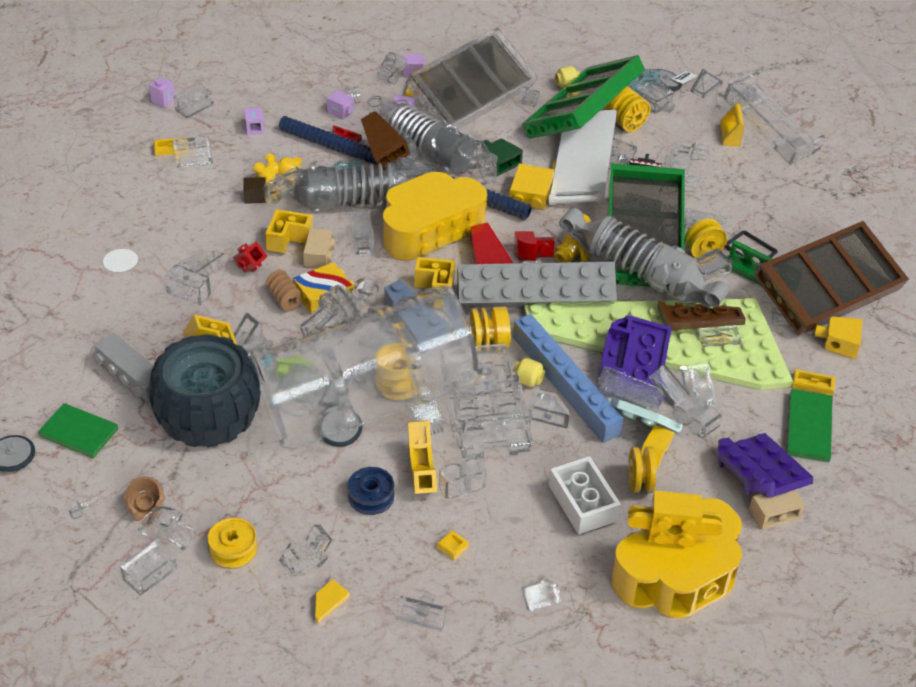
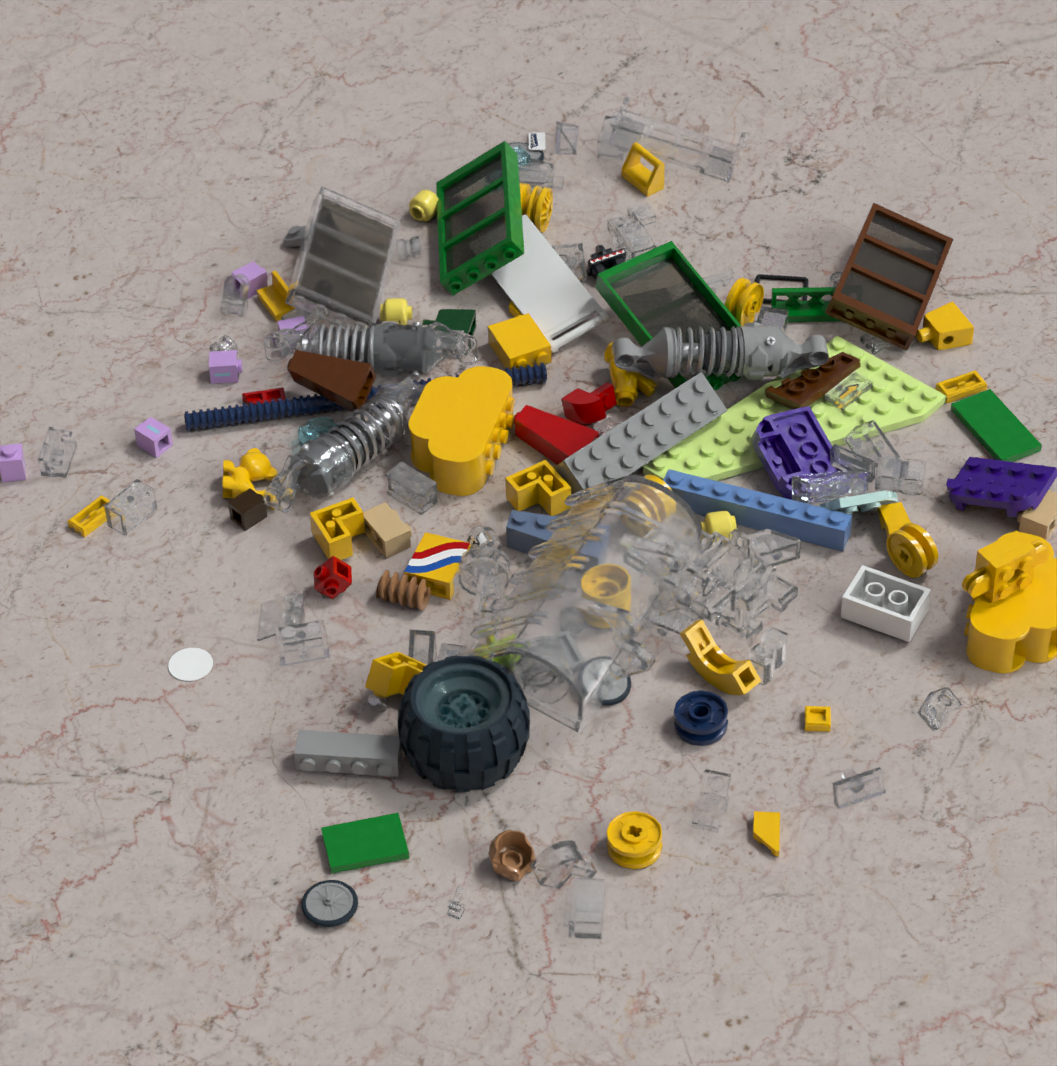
camera: 35 degrees left, 0 degrees up
(476, 127) = (396, 310): none -> light yellow head

